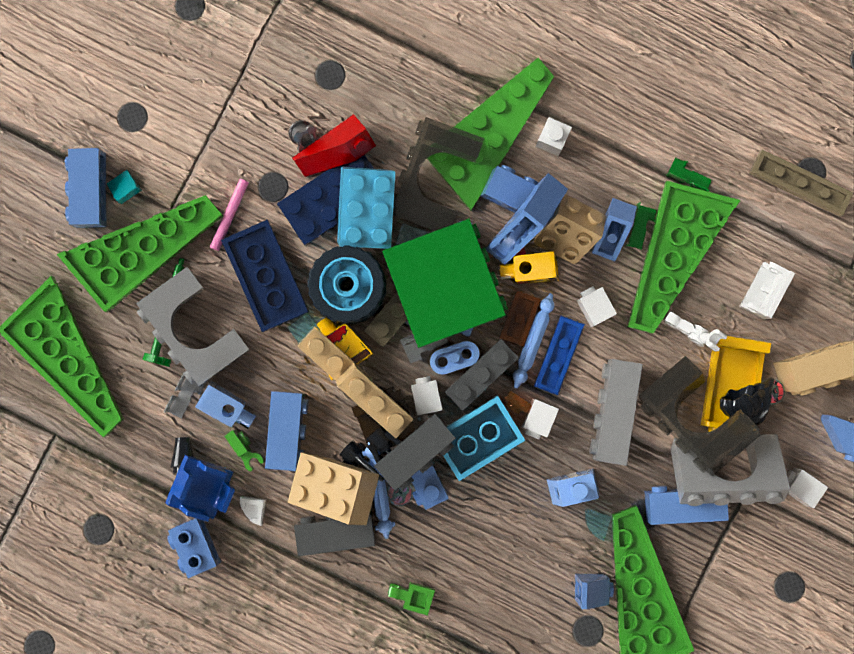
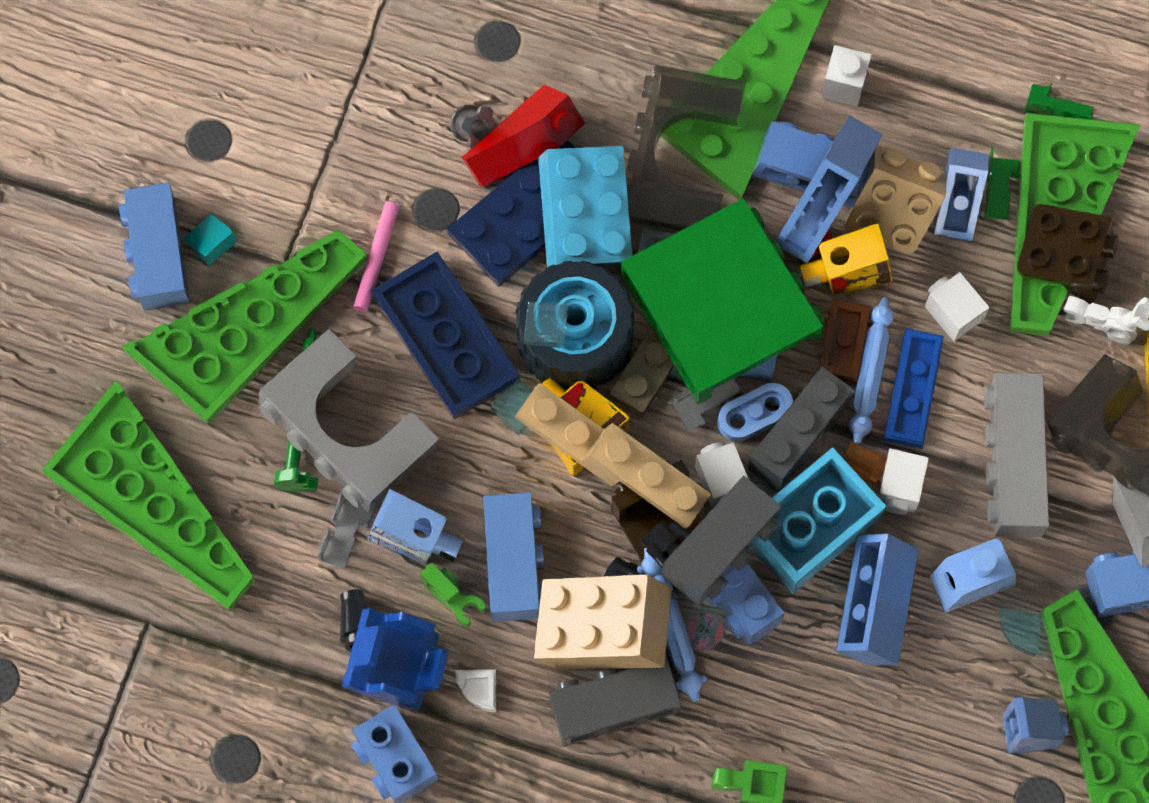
camera: 10 degrees left, 15 degrees down
(324, 290) = (545, 324): none -> clear light blue plate
(509, 495) = (877, 599): none -> medium blue brick
(675, 280) = (1069, 249): none -> dark brown bracket

